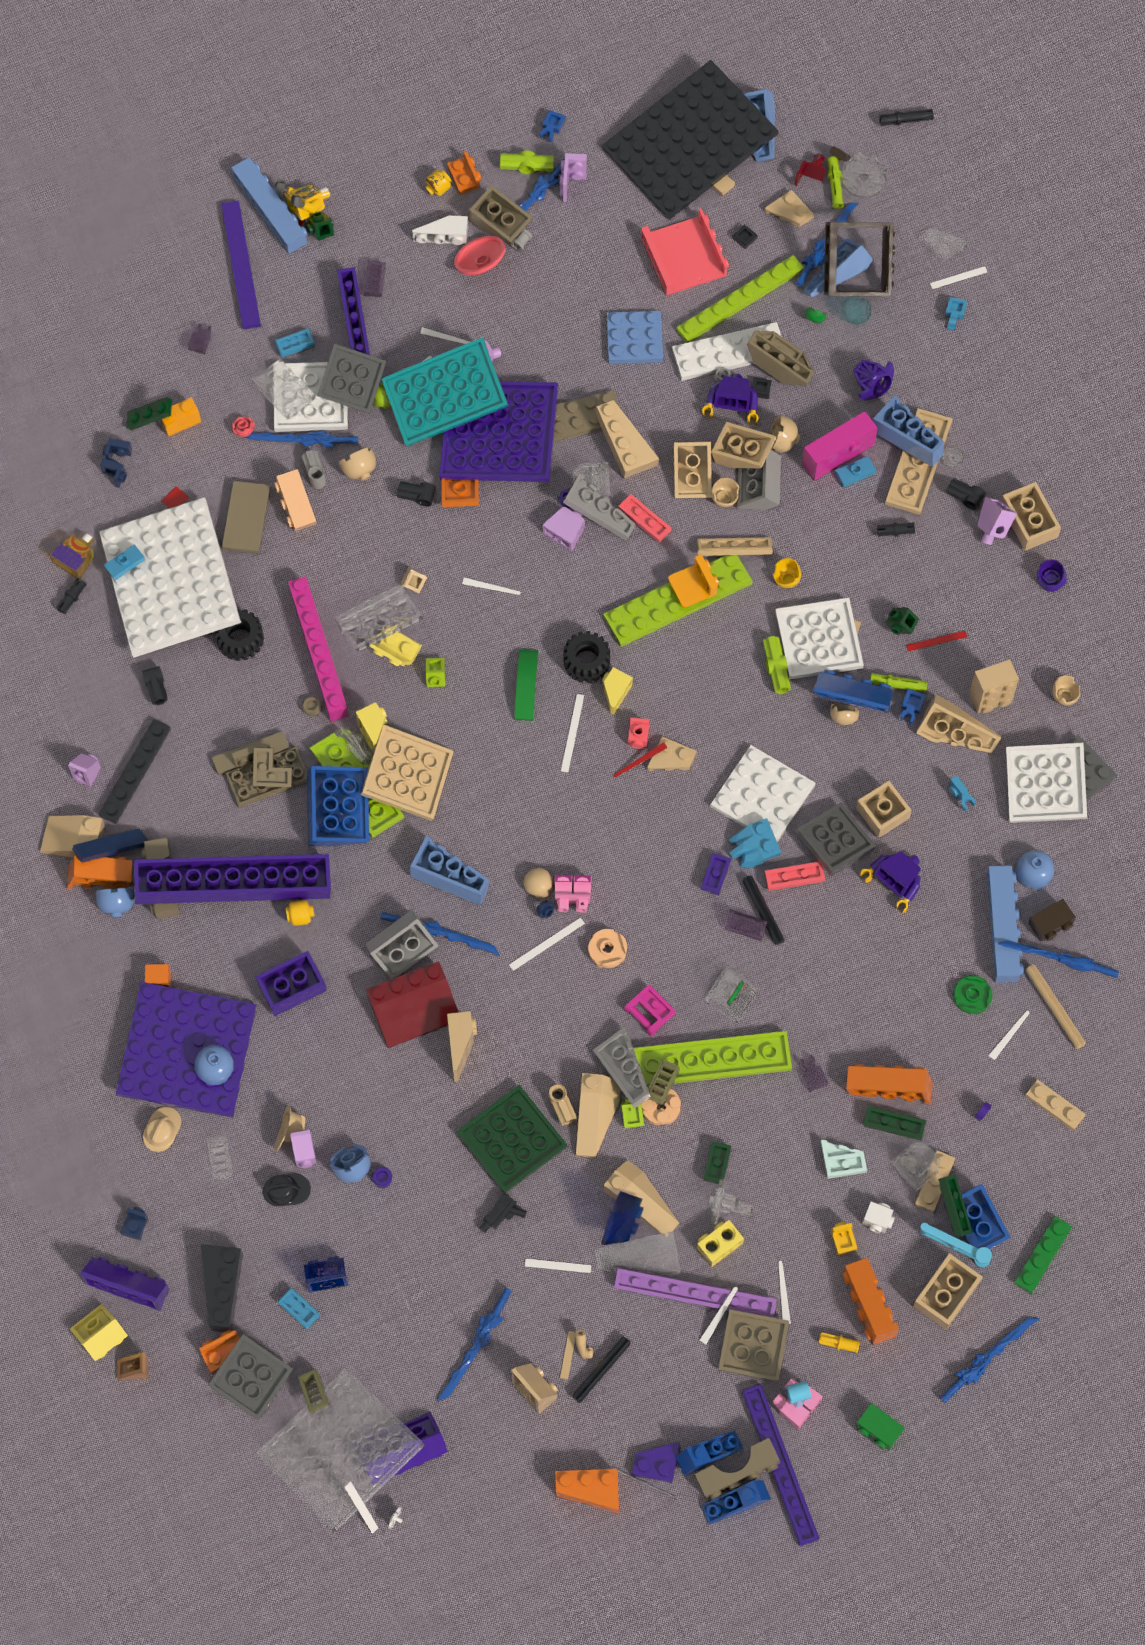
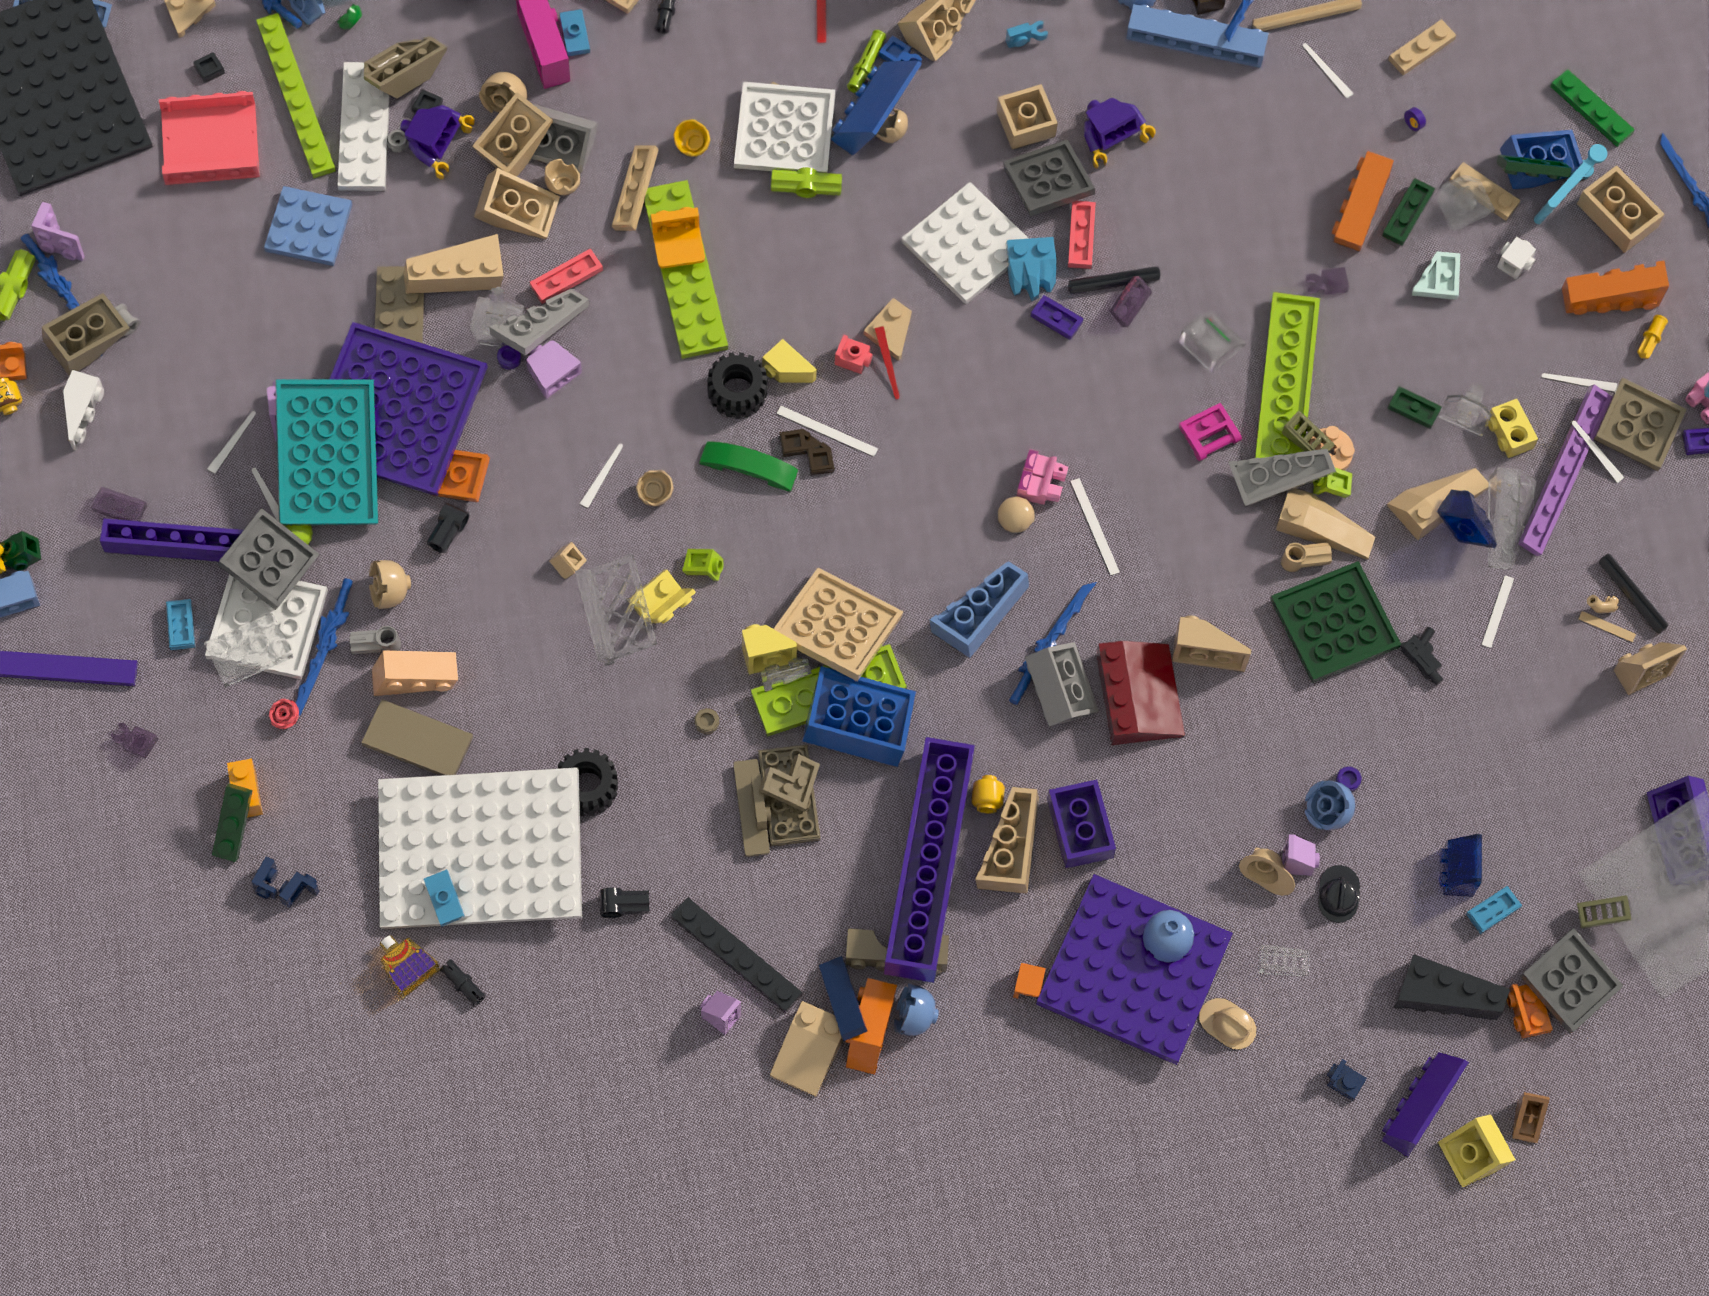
camera: 80 degrees left, 0 degrees up
(175, 498) = (358, 824): red sticker -> none
(263, 939) = (1010, 852): none -> tan wedge
(318, 649) = (632, 692): dark pink brick -> none
(480, 255) = (125, 368): coral dish -> none
(481, 1339) = (1567, 712): blue sword -> none
(486, 622) = (654, 487): none -> tan hair
(545, 909) = (1054, 514): dark blue plate -> none
(556, 717) = (801, 442): none -> dark brown tile
(602, 958) = (1118, 471): light nougat plate -> none
(724, 185) = (129, 70): tan tile -> none
(843, 1238) = (1534, 299): yellow bracket -> none
(901, 621) = (791, 33): dark green brick -> none
(972, 995) = (1271, 93): green tile -> none

